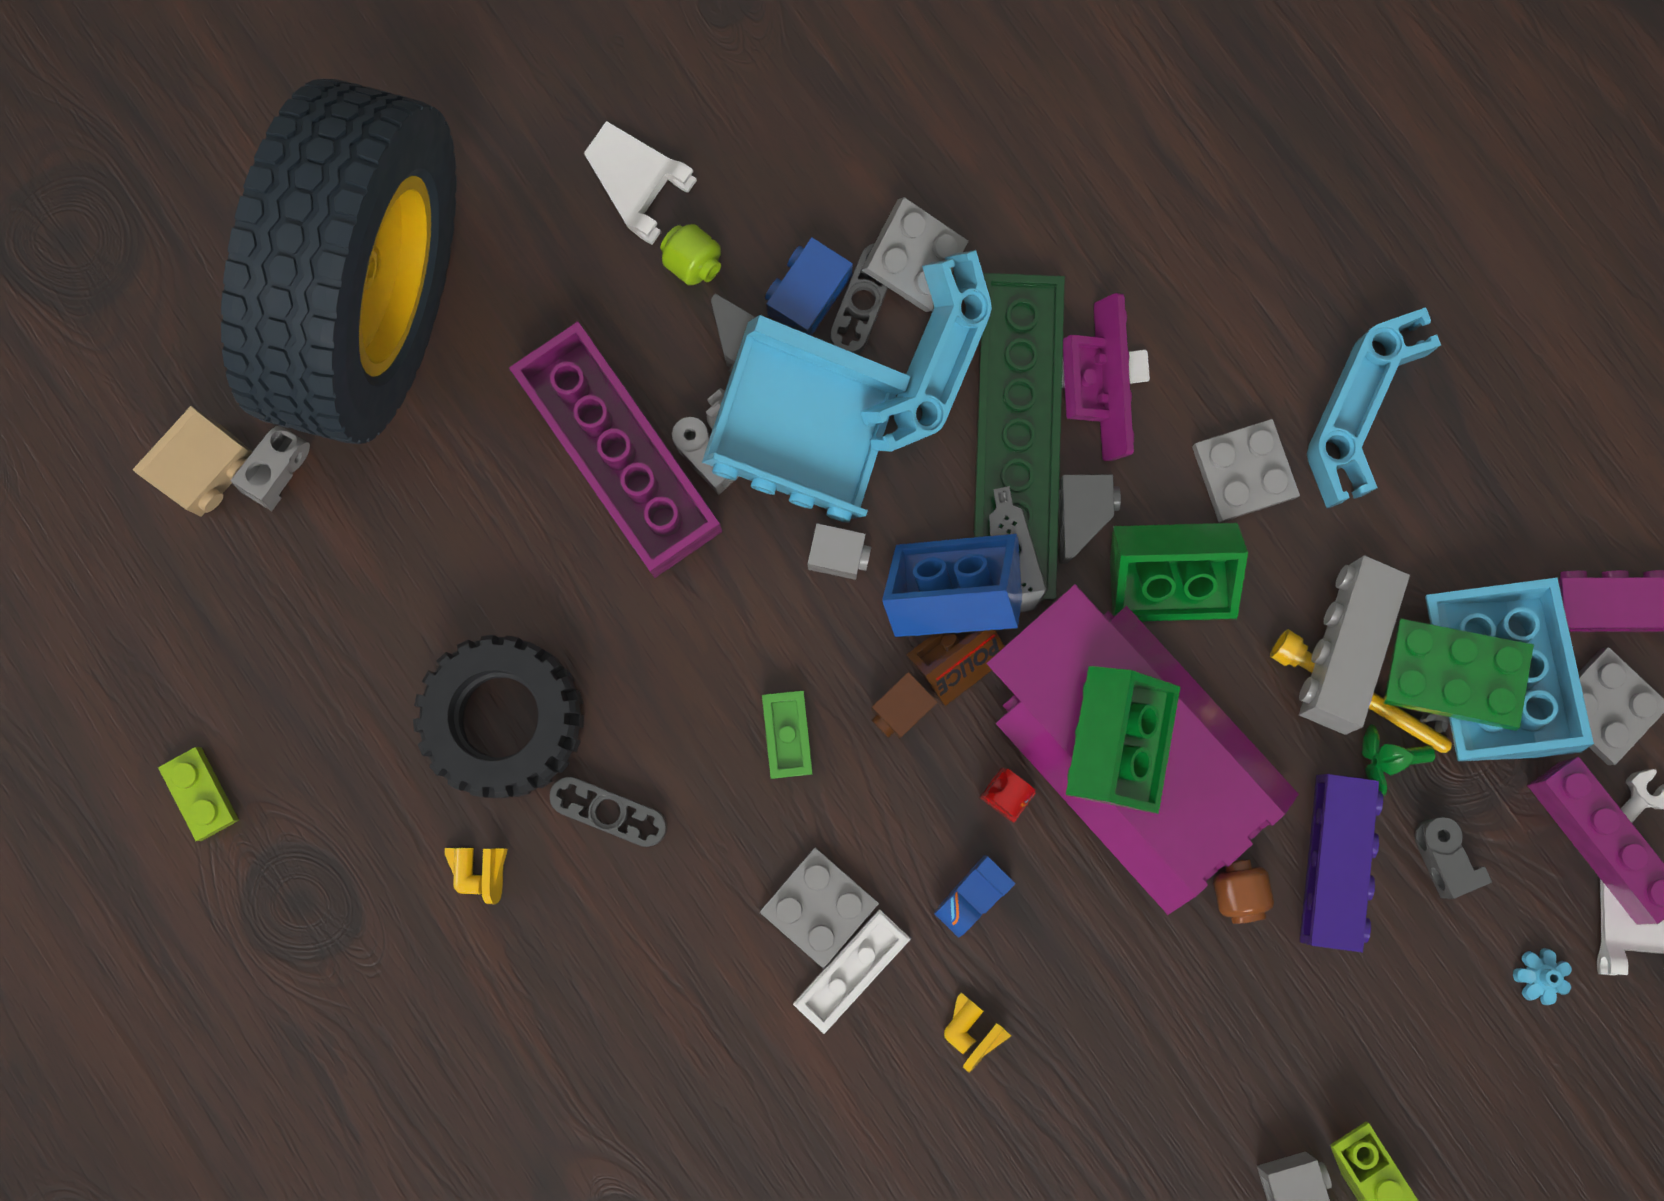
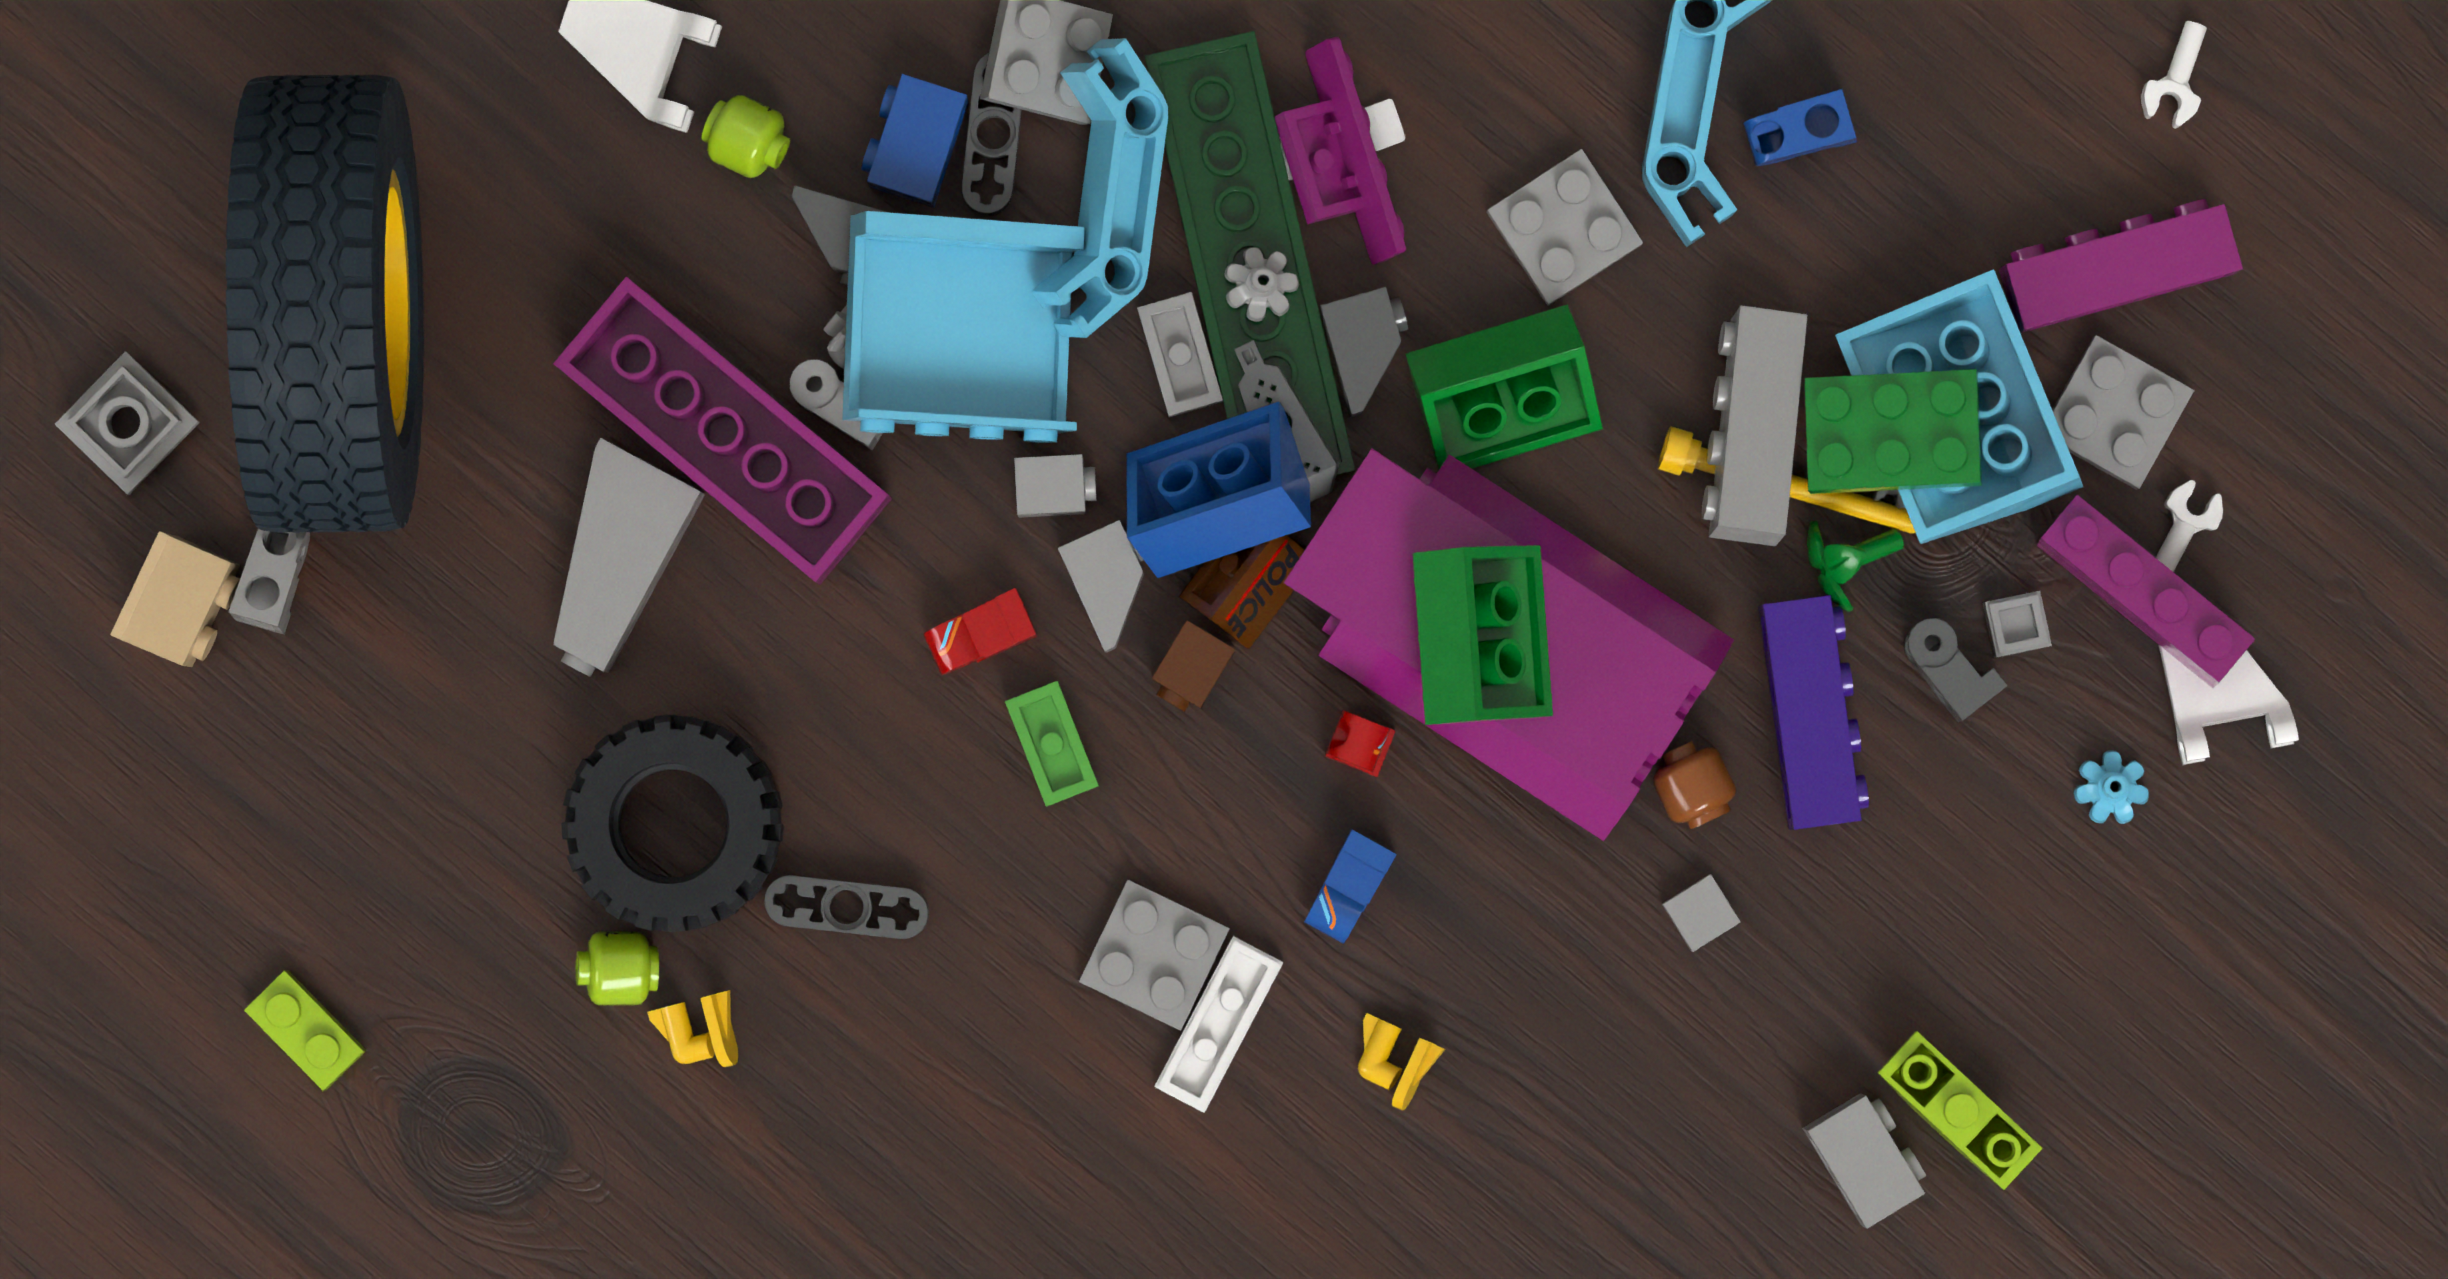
camera: 15 degrees left, 5 degrees up
(181, 329) = (161, 428): none -> light grey piece
(431, 811) = (618, 968): none -> lime head
(519, 517) = (621, 548): none -> light grey slope
(758, 642) = (980, 632): none -> red leg
(858, 627) = (1106, 578): none -> light grey slope
(952, 485) = (1180, 354): none -> light grey plate
(1019, 454) = (1259, 296): none -> light grey plant
(1222, 986) = (1701, 913): none -> light grey tile
(1433, 445) = (1800, 129): none -> blue leg
(1502, 838) = (2017, 624): none -> light grey tile

